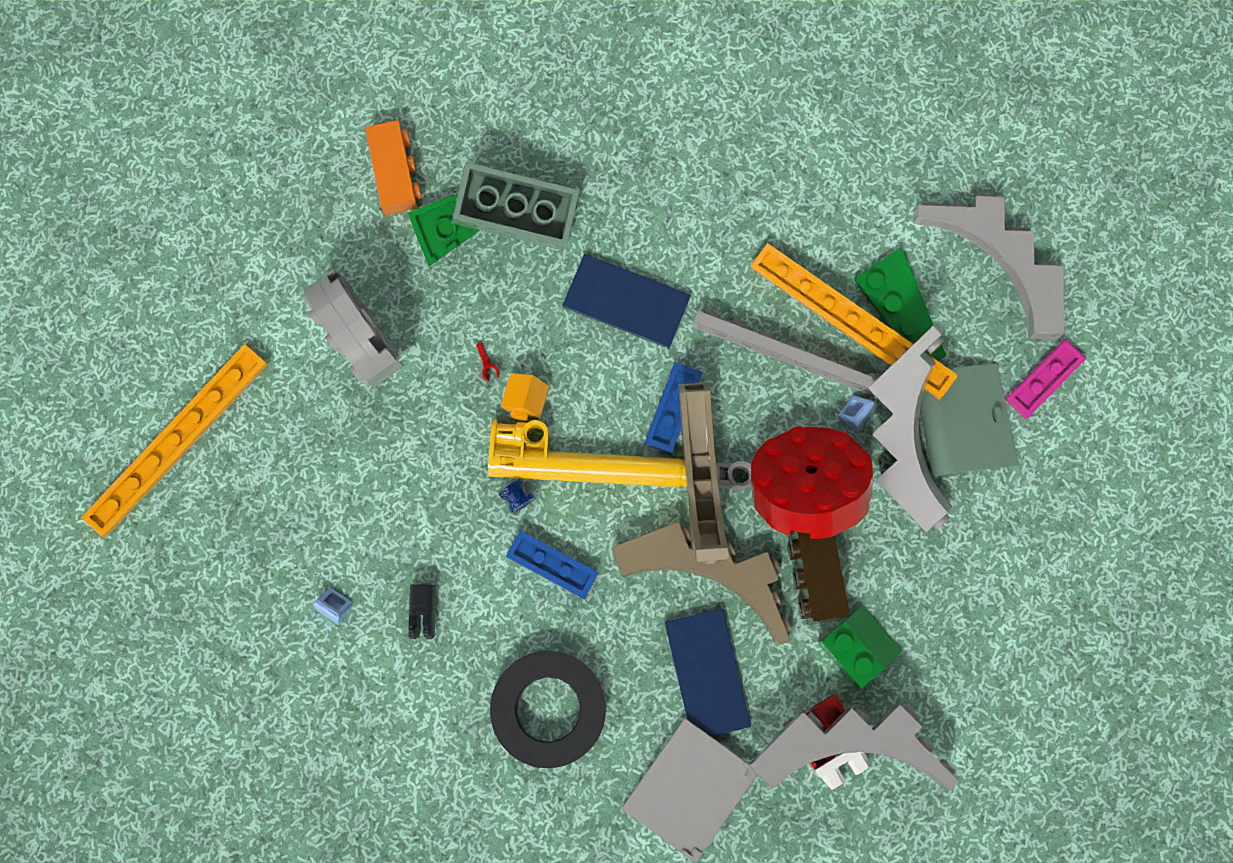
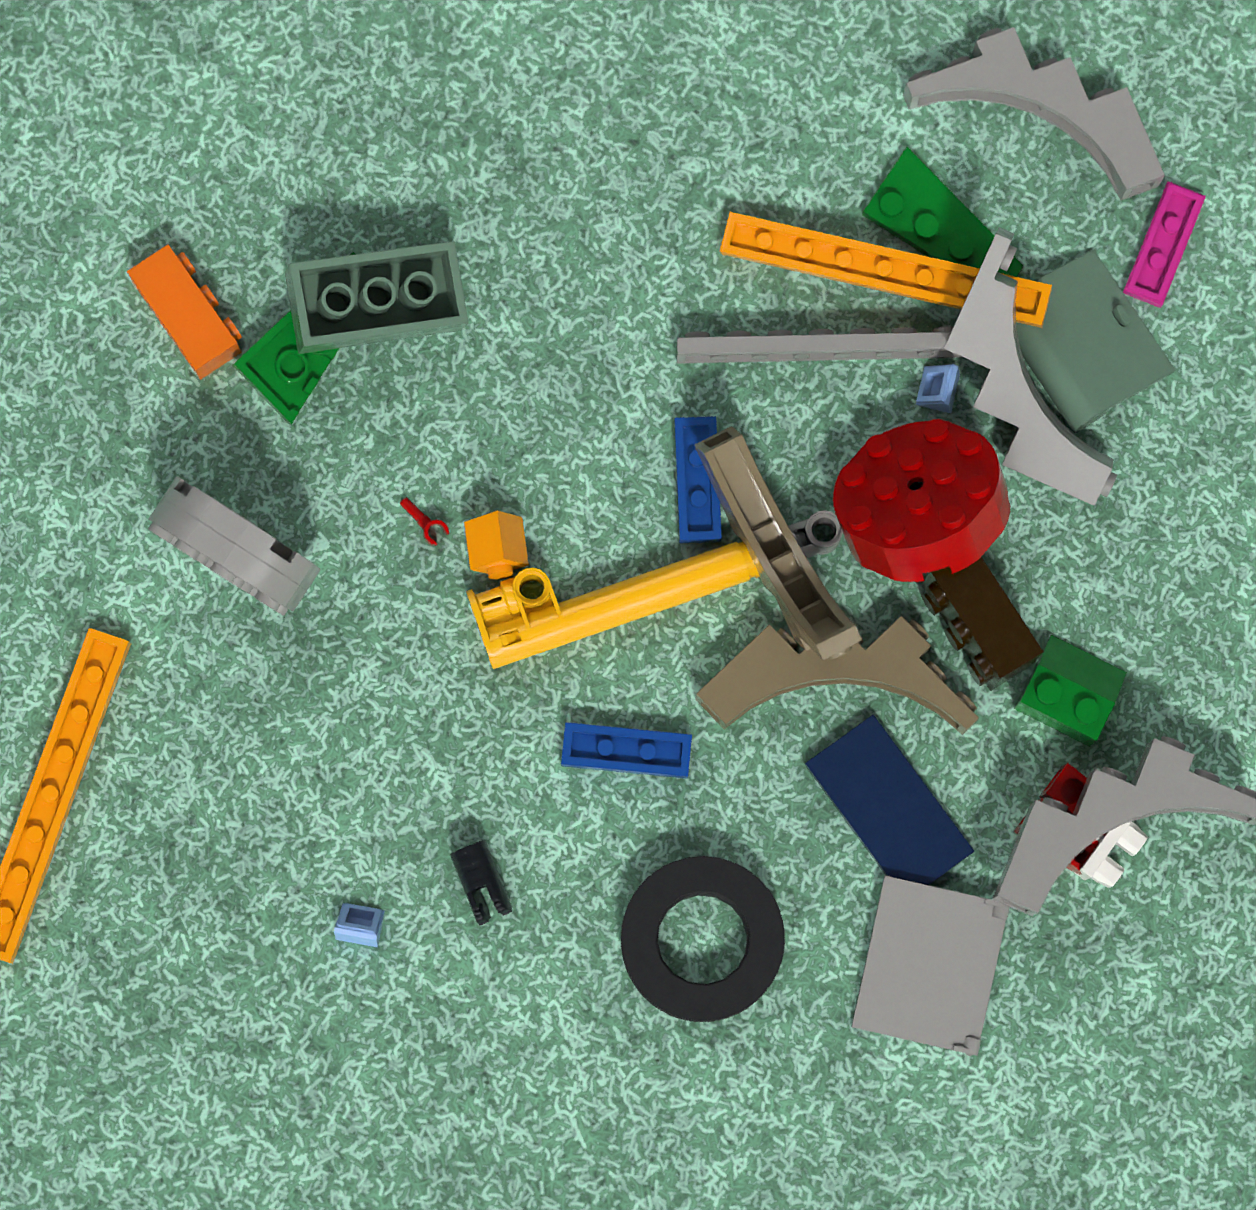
camera: 25 degrees left, 0 degrees up
(517, 496) = (541, 679): clear blue wheel -> none
(626, 301) = (575, 363): dark blue tile -> none

